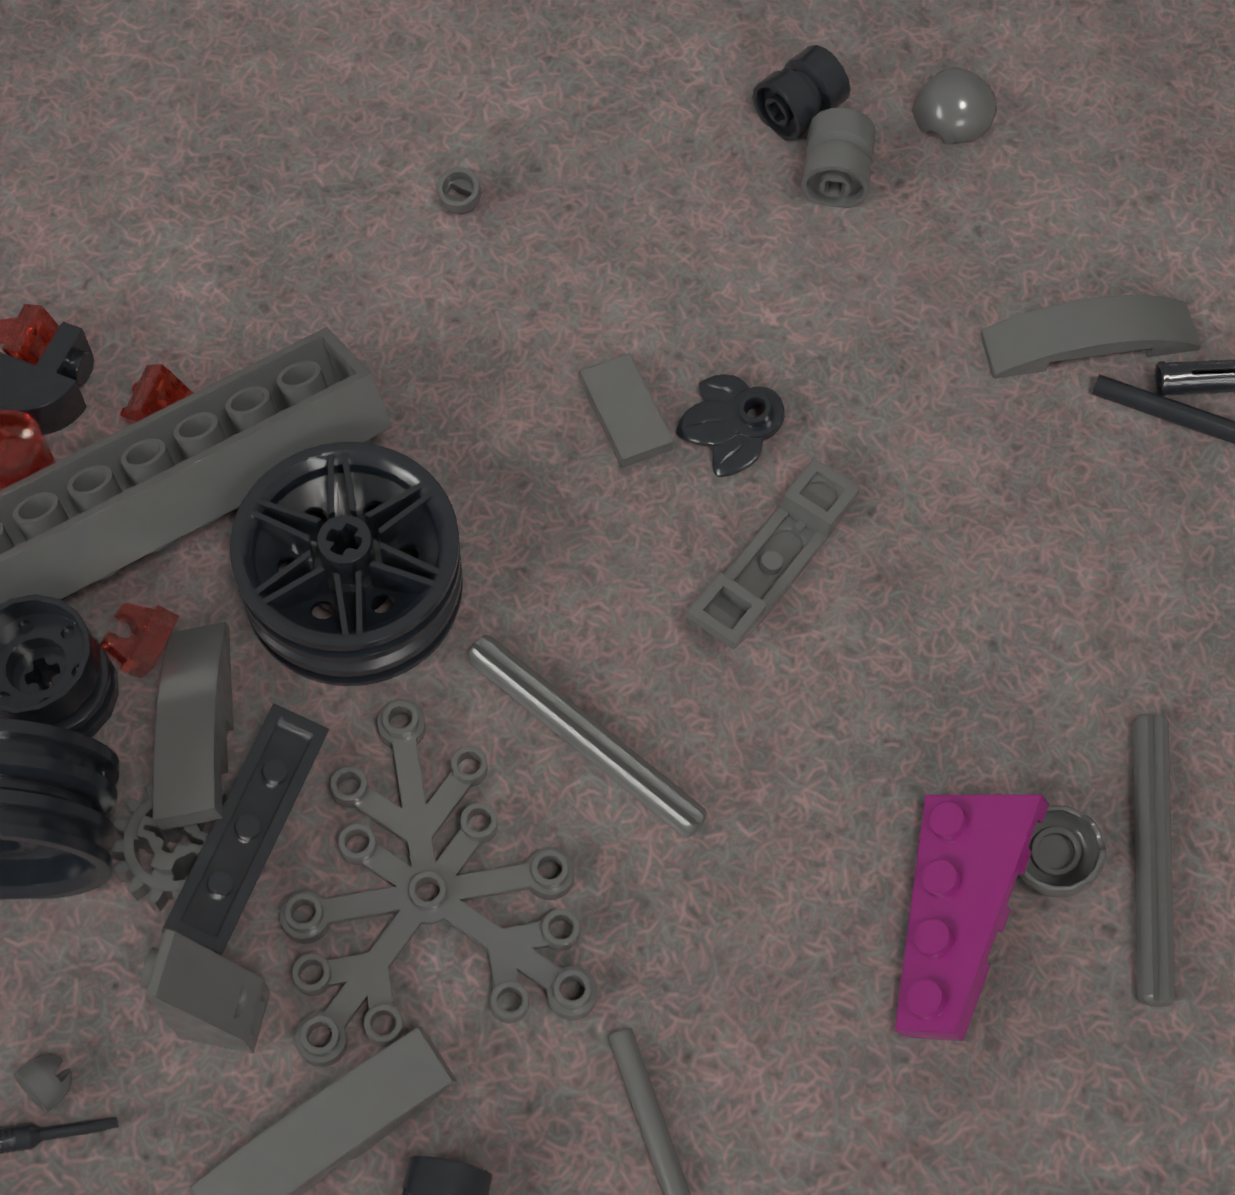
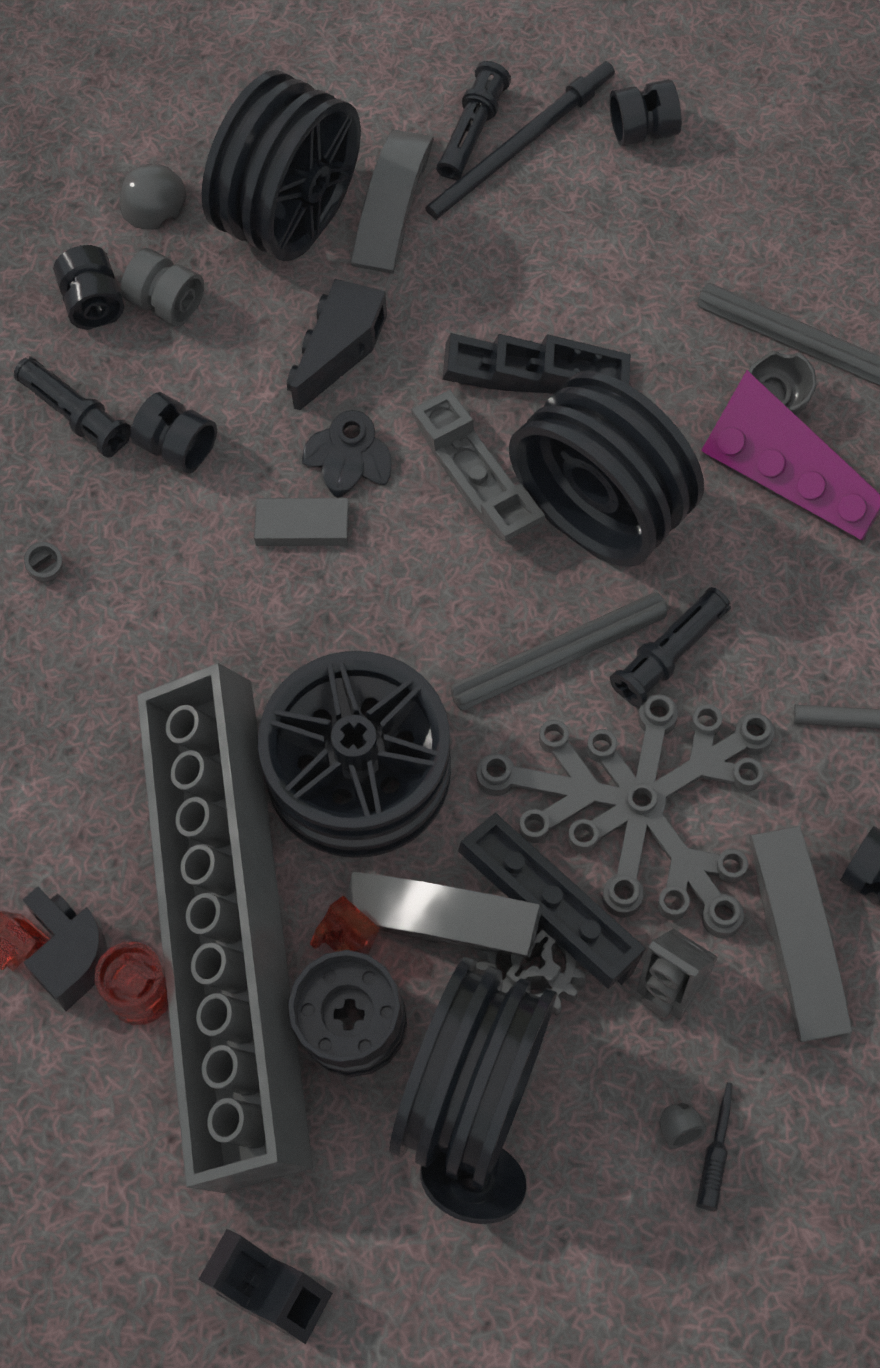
camera: 60 degrees left, 0 degrees up
(154, 392) = (130, 854): clear red tile -> none
(617, 844) = (658, 659): none -> black pin
(650, 157) = (84, 415): none -> black pin
(665, 241) = (171, 431): none -> black wheel
(806, 676) = (607, 468): none -> black wheel
(872, 353) = (342, 337): none -> black slope
(945, 572) = (527, 365): none -> black slope
(1031, 187) = (280, 164): none -> black wheel

